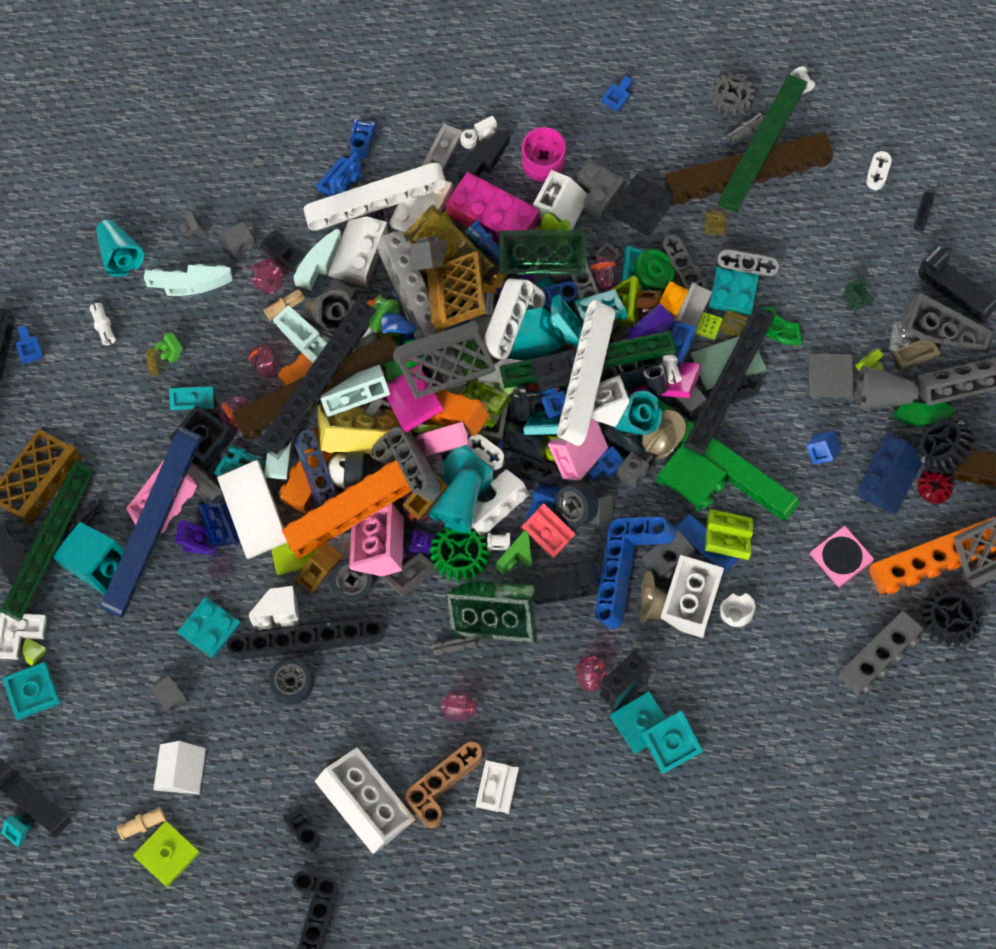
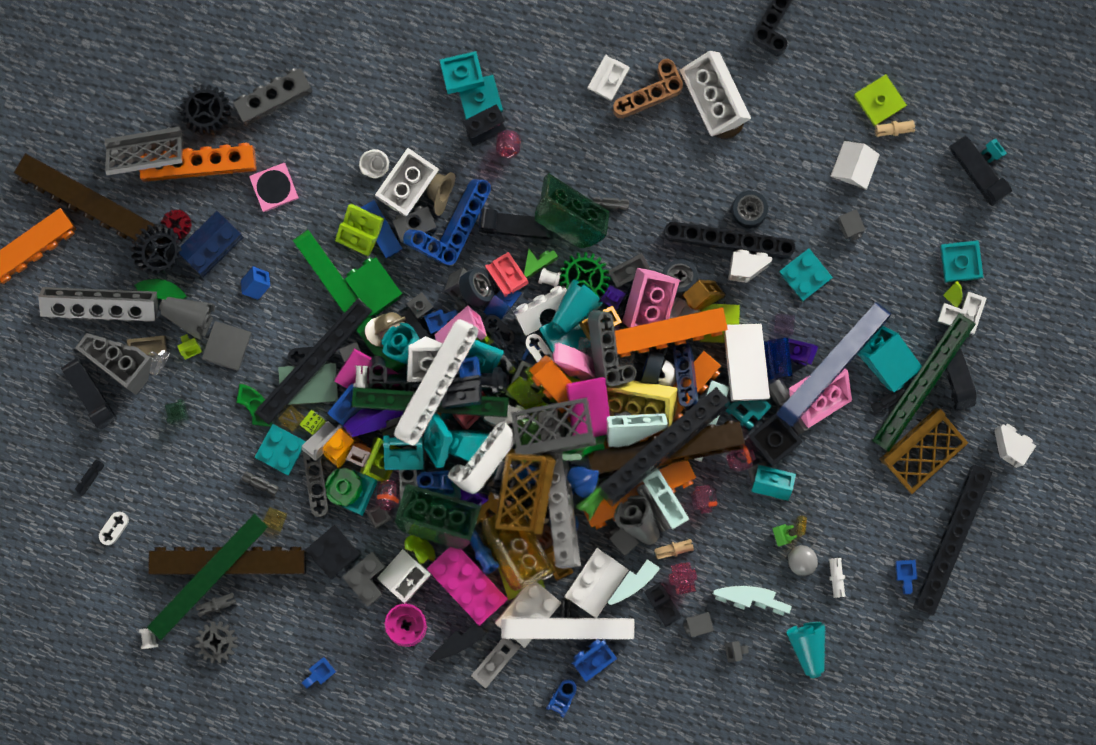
camera: 165 degrees left, 15 degrees up
(143, 332) = (802, 560): none -> light grey hair
(301, 825) = (769, 92): black piece -> none
(428, 253) = (538, 535): dark grey slope -> none
(458, 706) = (621, 149): clear pink head -> none
(482, 130) = (449, 670): white plate -> none
(733, 254) = (262, 478): beam -> none

